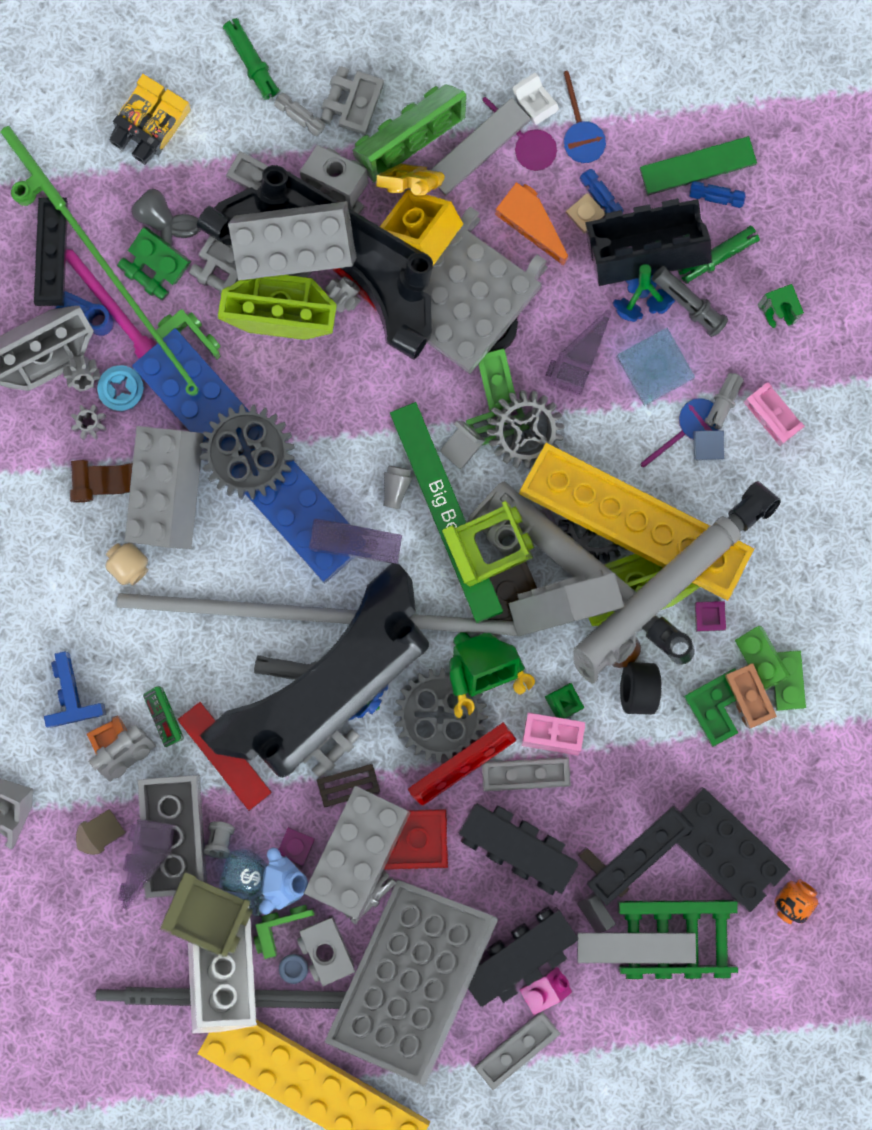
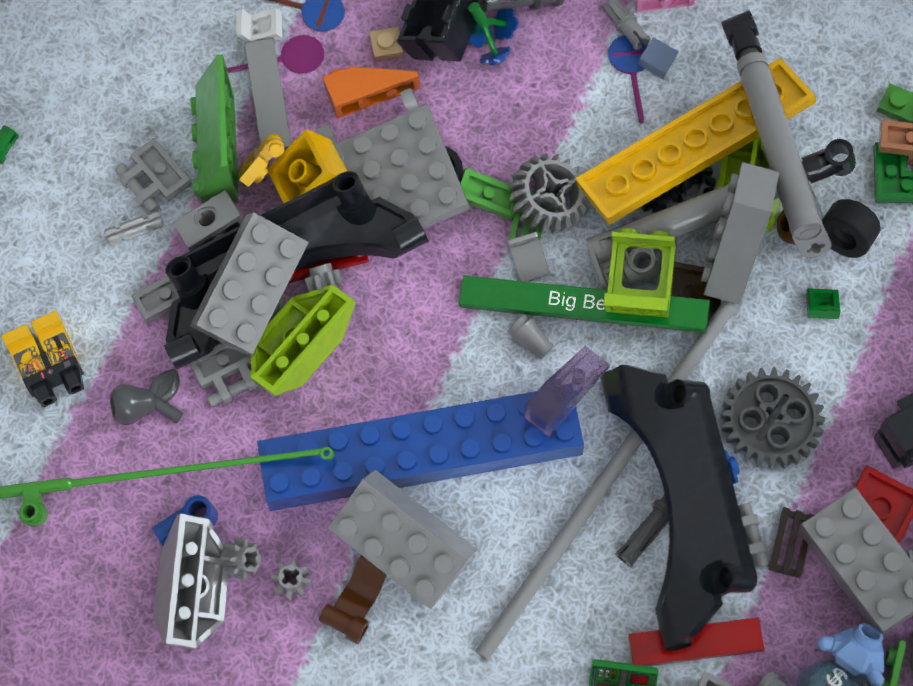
camera: 55 degrees left, 15 degrees down
(50, 254) = (108, 520): black tile -> none
(117, 375) = (283, 519): medium azure gear -> none
(126, 563) = (452, 623): tan head -> none
(141, 343) = (251, 487): dark pink piece -> none
(157, 255) = (177, 423): green plate -> none
(181, 321) = (264, 429): bright green bracket -> none
(223, 461) = (425, 409): dark grey gear -> none
(256, 68) = (65, 239): green pin -> none
(296, 846) = (823, 623): magenta plate -> none
(462, 764) = (832, 423): red tile -> none
(482, 665) = (749, 351): green torso -> none
(526, 774) = (871, 376): light grey tile -> none
(553, 734) = (849, 327): bright pink hinge -> none
(577, 358) = (516, 122): clear purple slope -> none
(600, 191) = (376, 22): blue axle -> none
(655, 366) = (560, 61): clear light blue plate -> none
(710, 616) = (814, 137): magenta plate -> none
(760, 651) = (868, 115): bright green plate -> none

